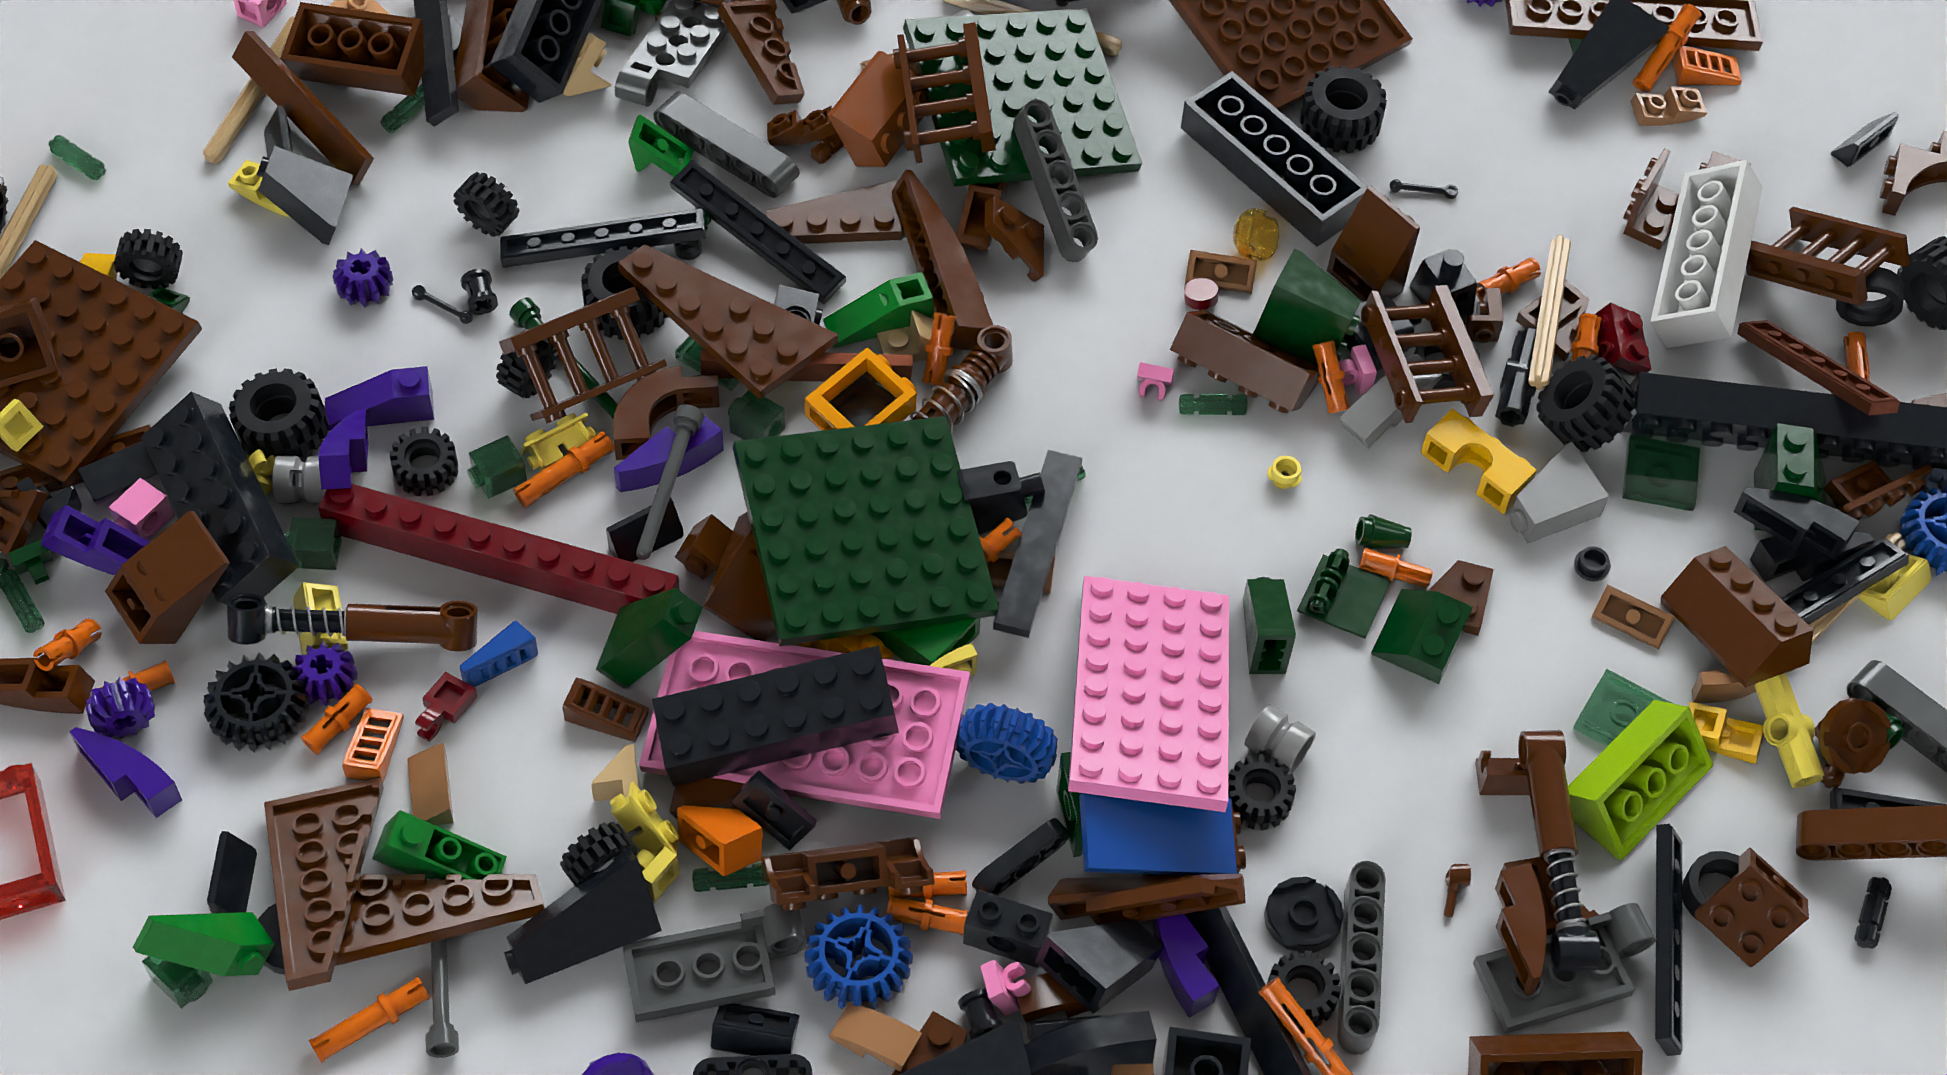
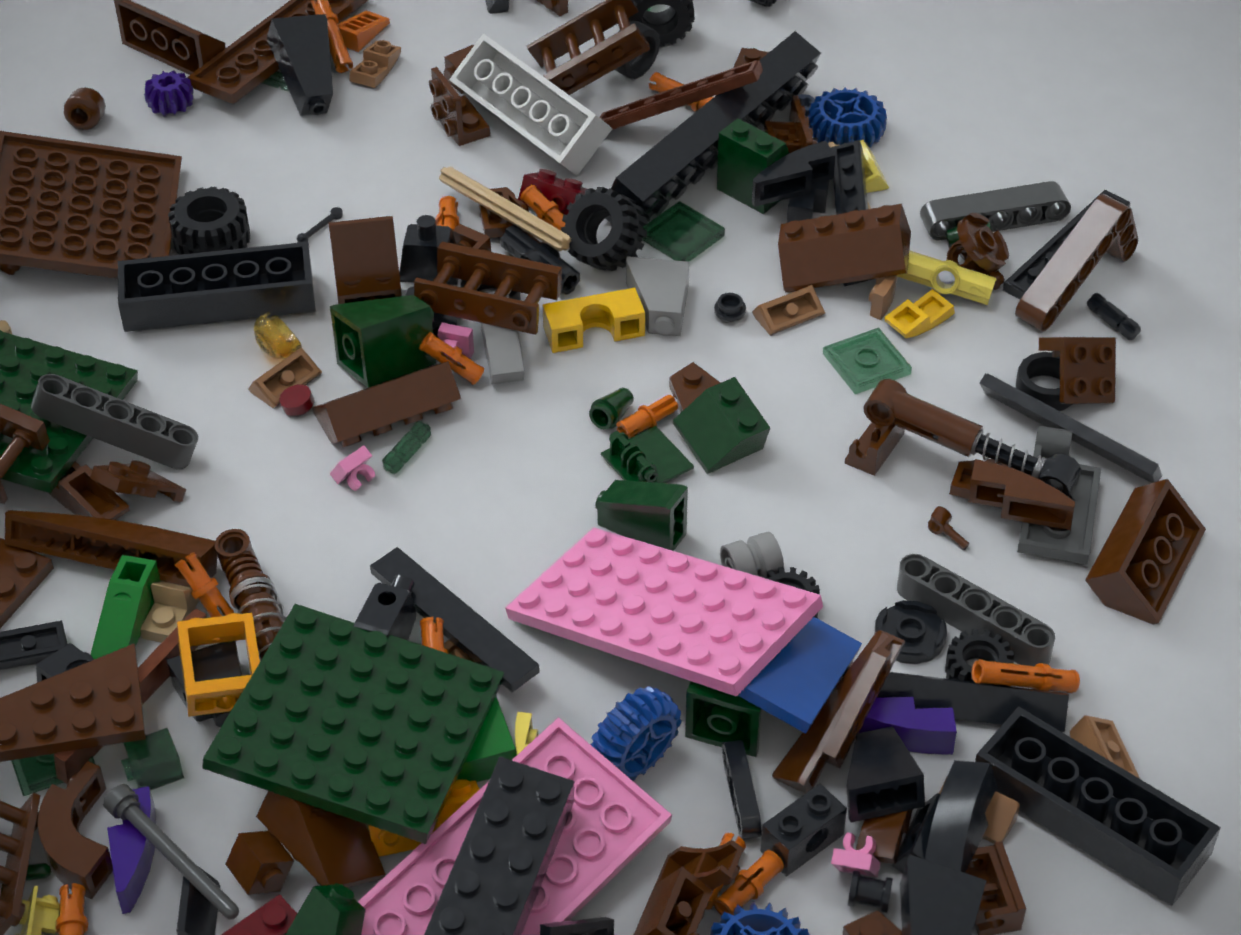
camera: 55 degrees left, 10 degrees down
(1285, 465) = (508, 435): light yellow plate -> none
(1639, 777) = (925, 364): lime slope -> none

